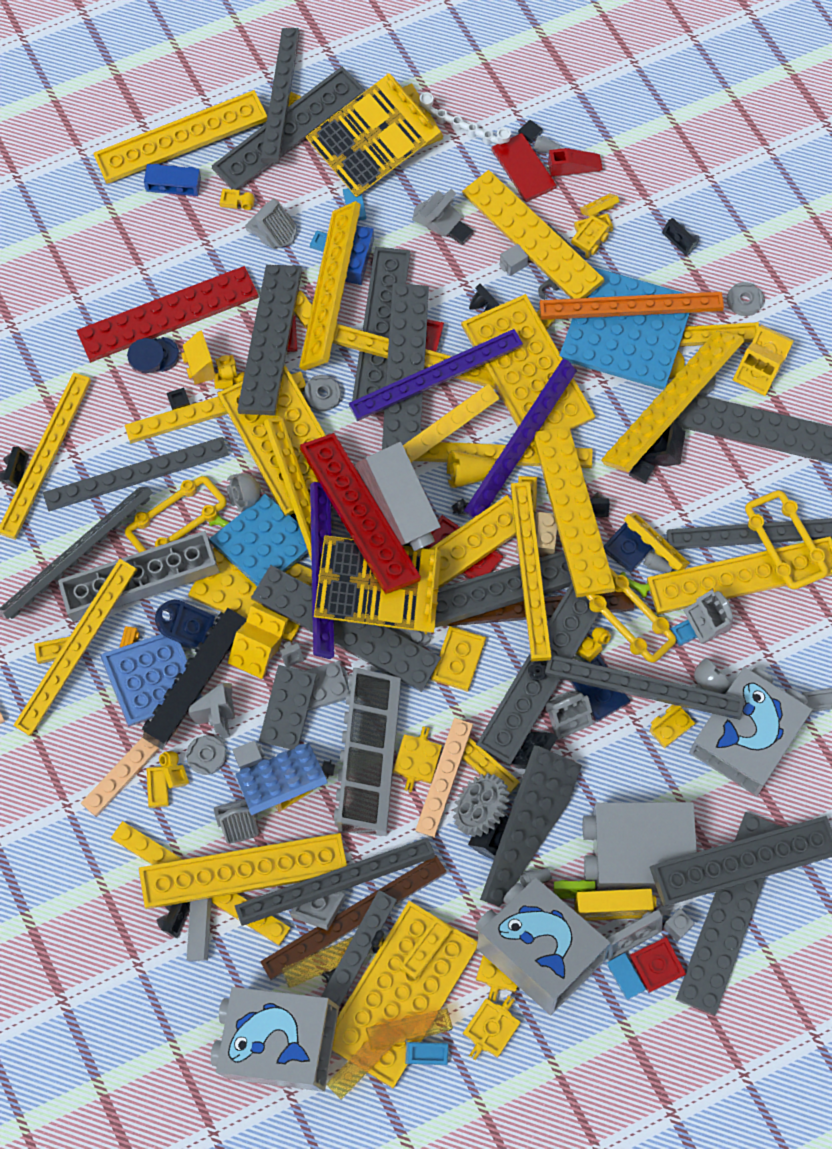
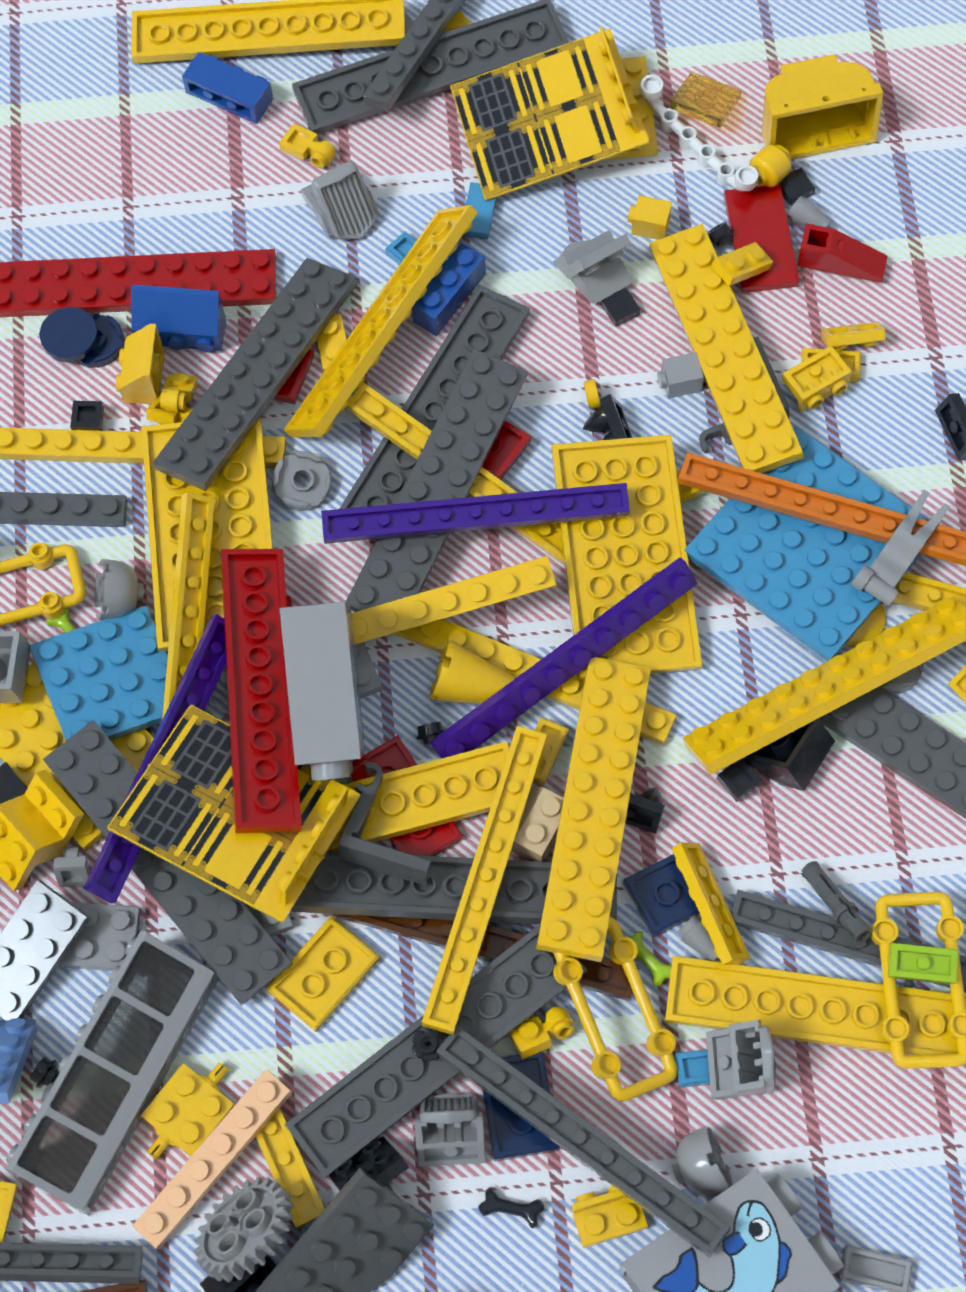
camera: 25 degrees right, 0 degrees up
(214, 320) = (181, 315): none -> blue slope
(456, 176) = (650, 217): none -> yellow brick
(458, 97) = (705, 99): none -> clear yellow tile
(463, 582) = (372, 855): none -> dark grey hinge
(467, 287) = (591, 394): none -> yellow tile
(500, 172) = (720, 234): none -> black plate
(515, 122) = (772, 164): none -> yellow head
(521, 185) = (742, 264): none -> yellow plate
(526, 80) = (821, 105): none -> yellow container
(627, 740) = (528, 1211): none -> black piece
(679, 317) = (897, 554): none -> light grey flag
(727, 518) = (844, 911): none -> dark grey pin
(783, 530) = (922, 963): none -> lime plate

